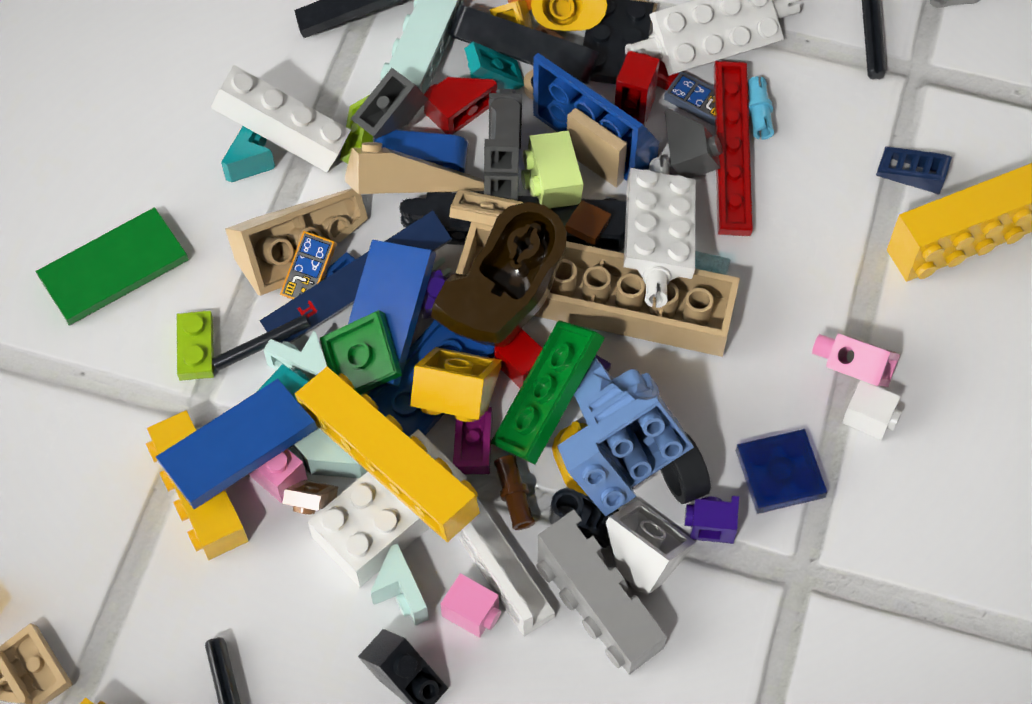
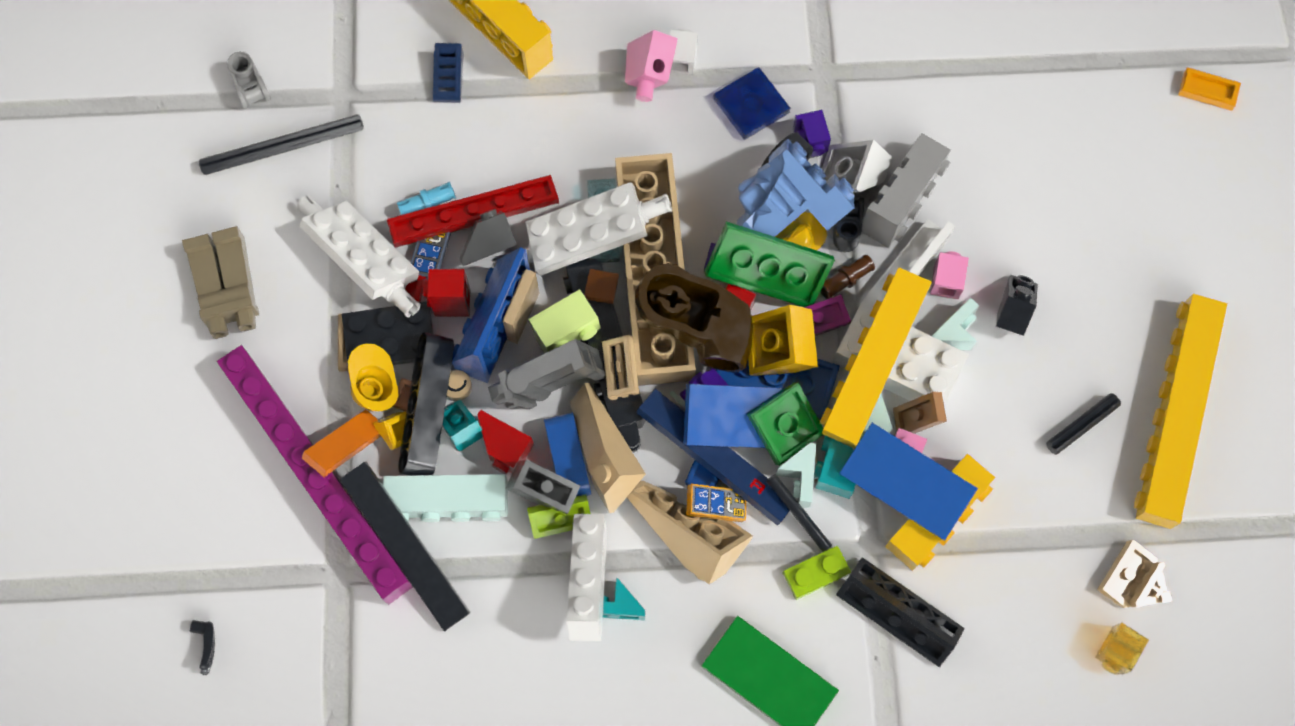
camera: 110 degrees left, 10 degrees up
(109, 397) = (898, 614): none -> black fence

